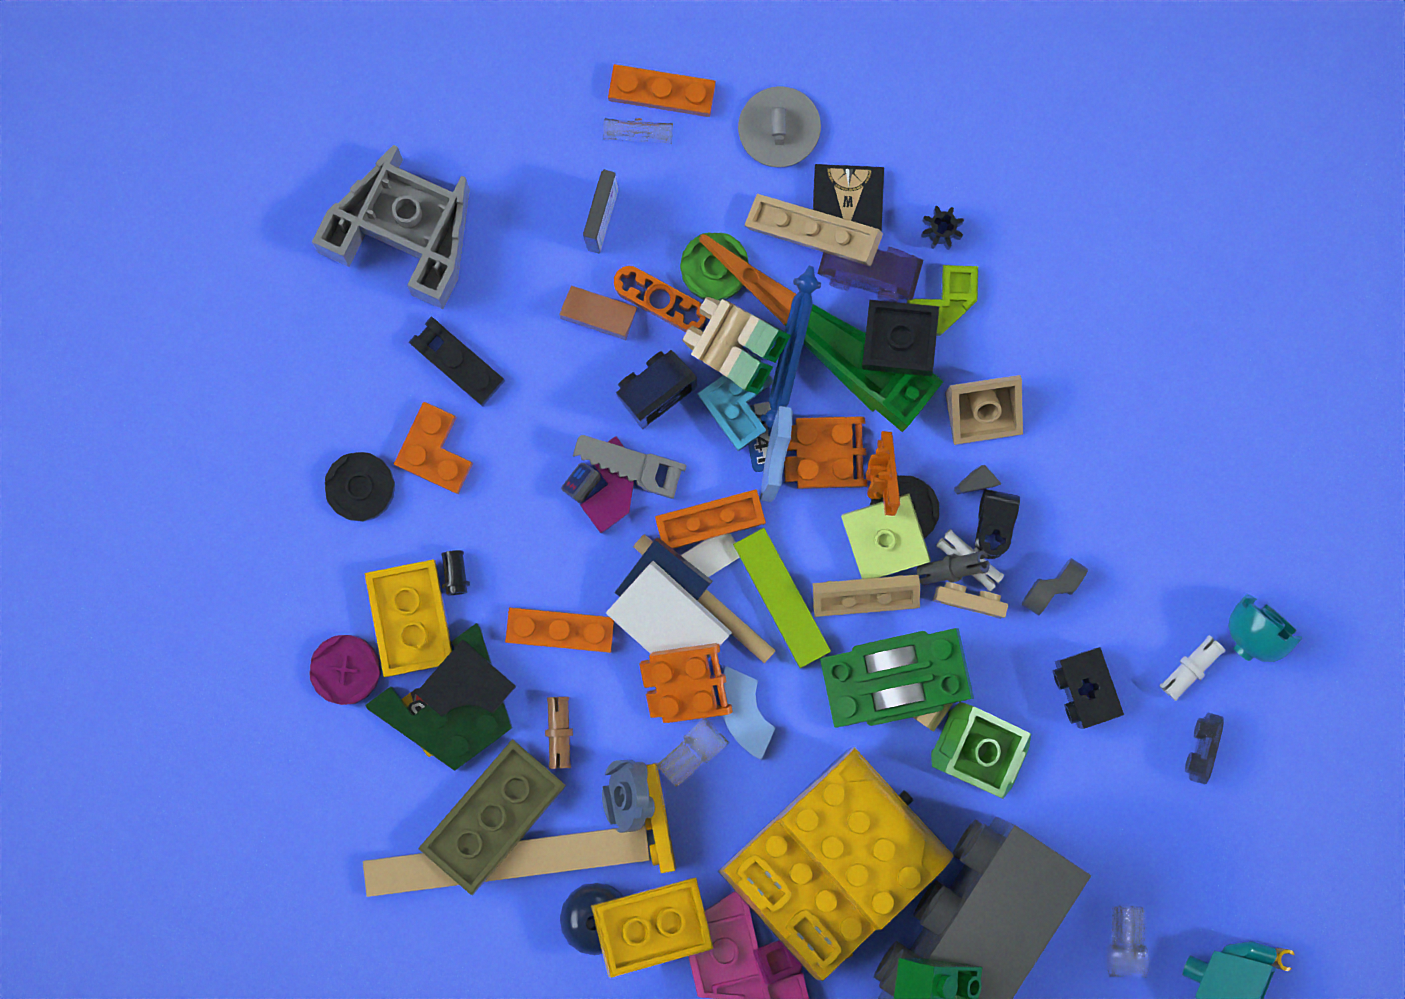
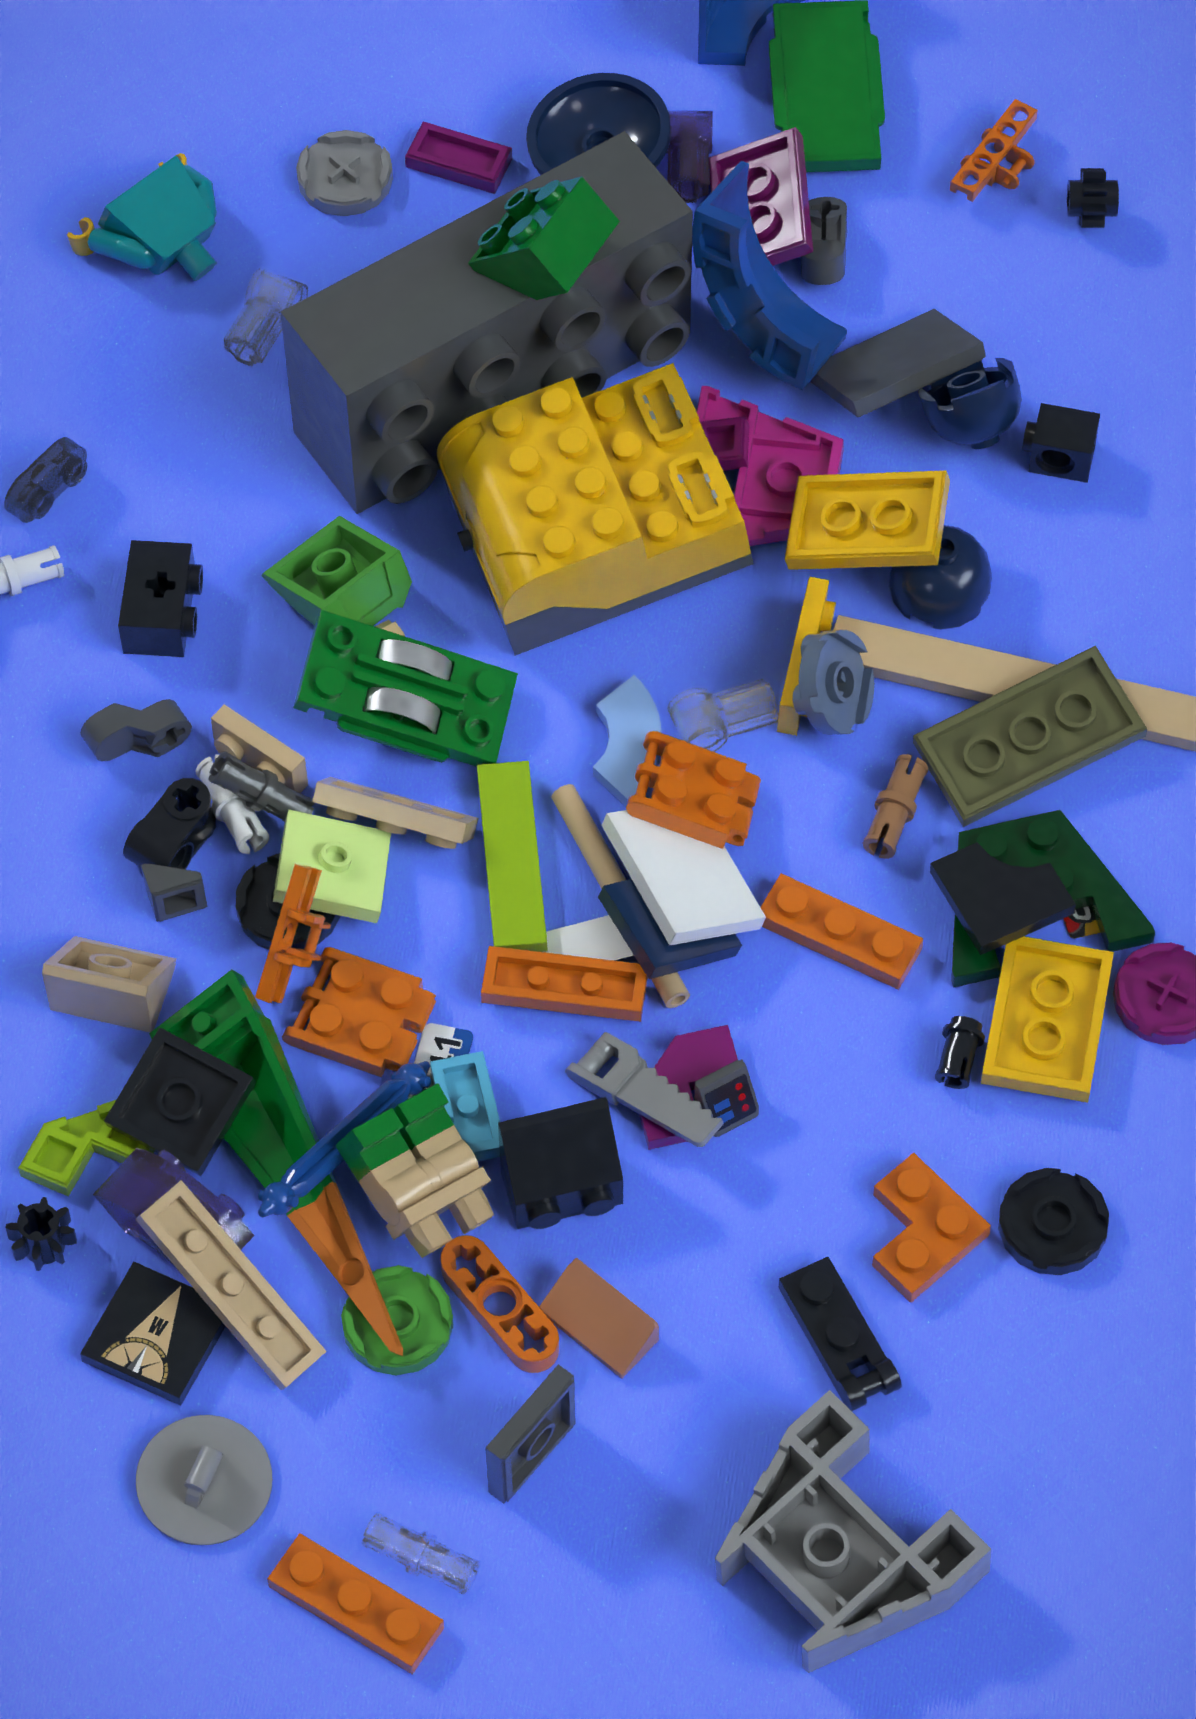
camera: 160 degrees left, 25 degrees down
(776, 454) = (431, 1025): light blue tile -> none

